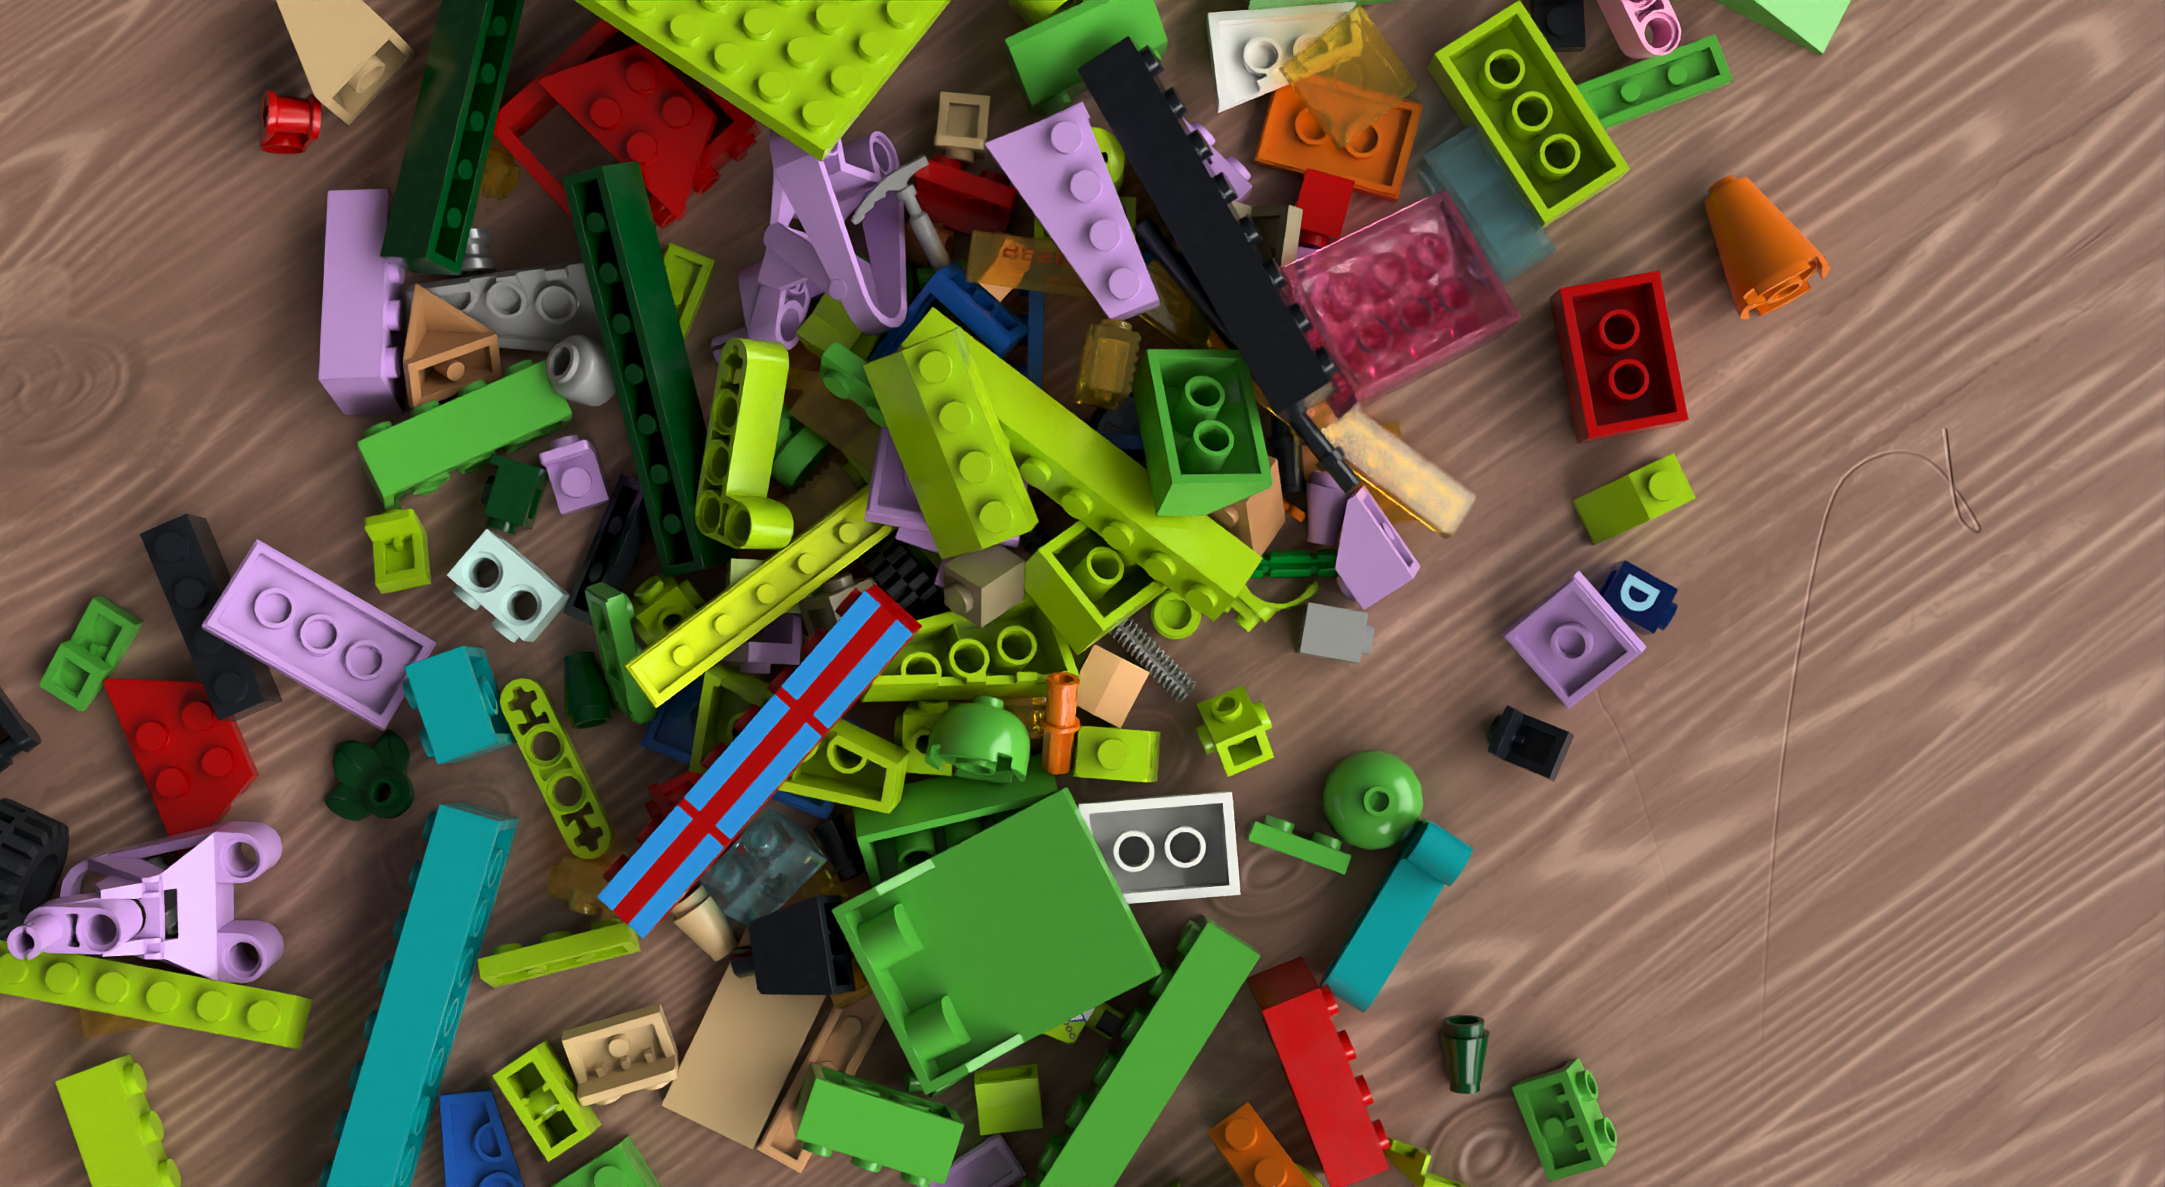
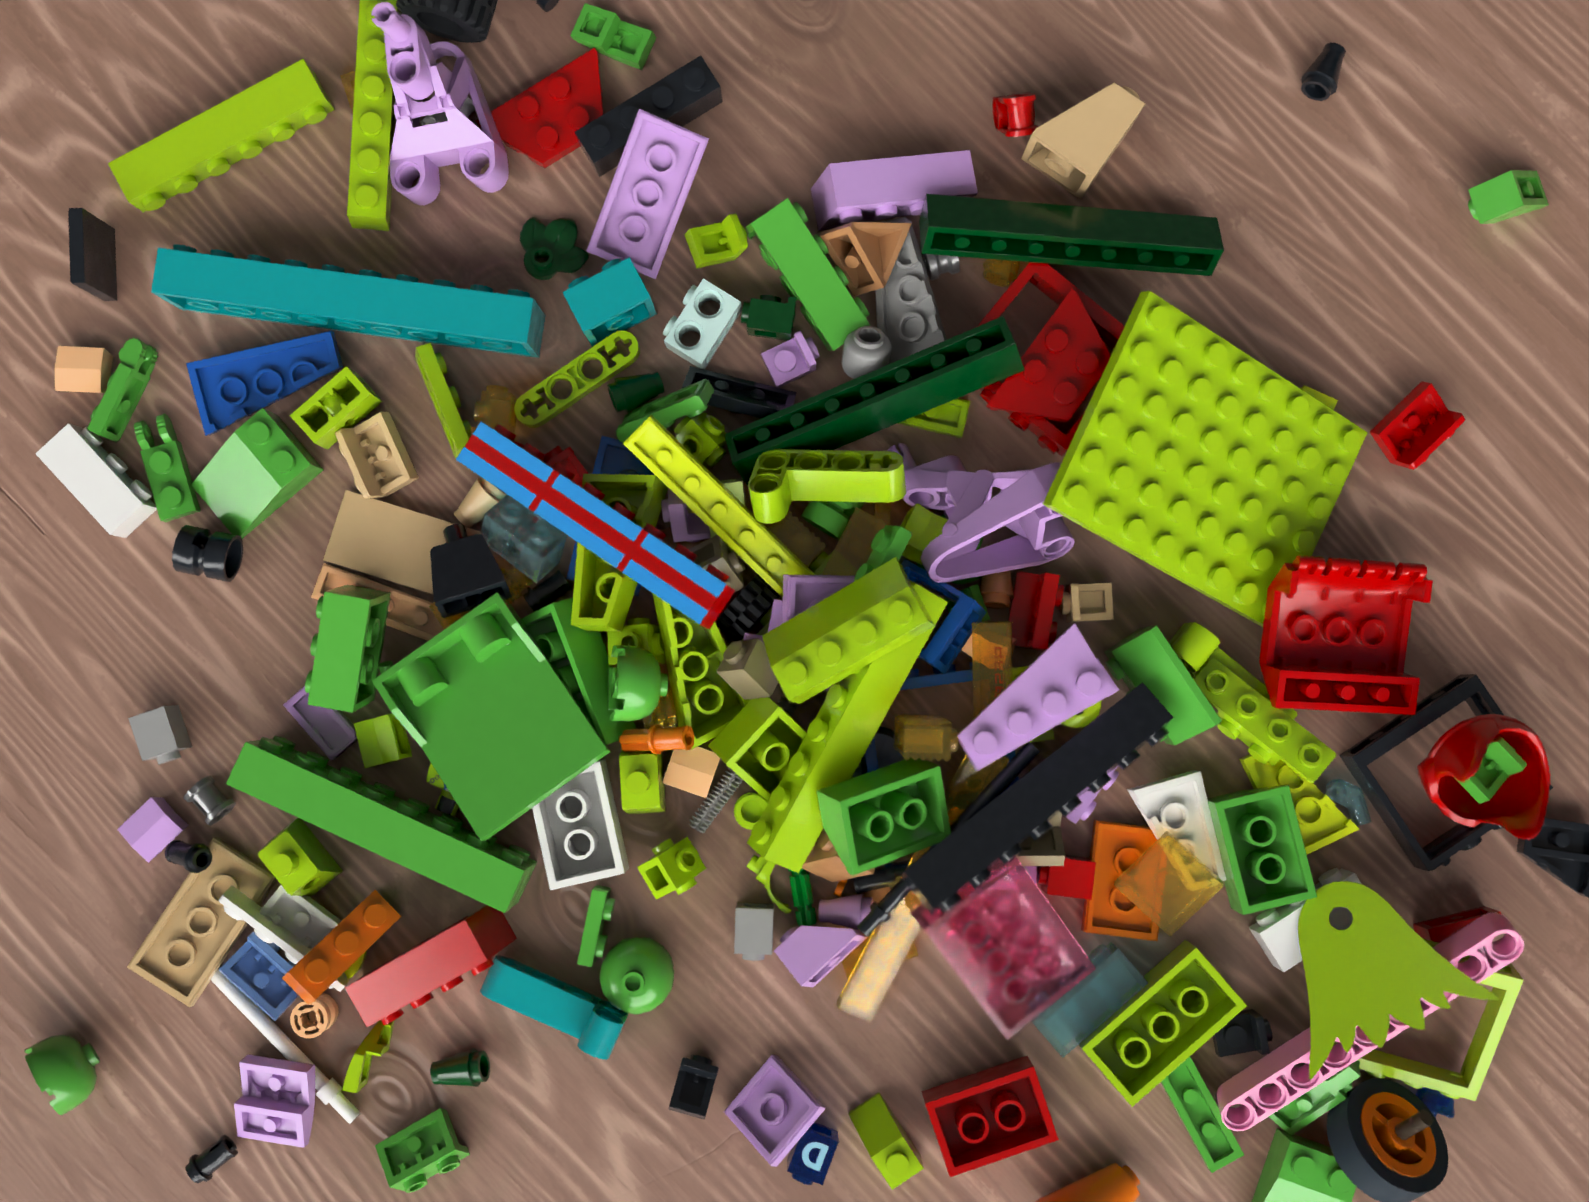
camera: 90 degrees right, 0 degrees up
(918, 219) = (1011, 582): light grey piece -> none

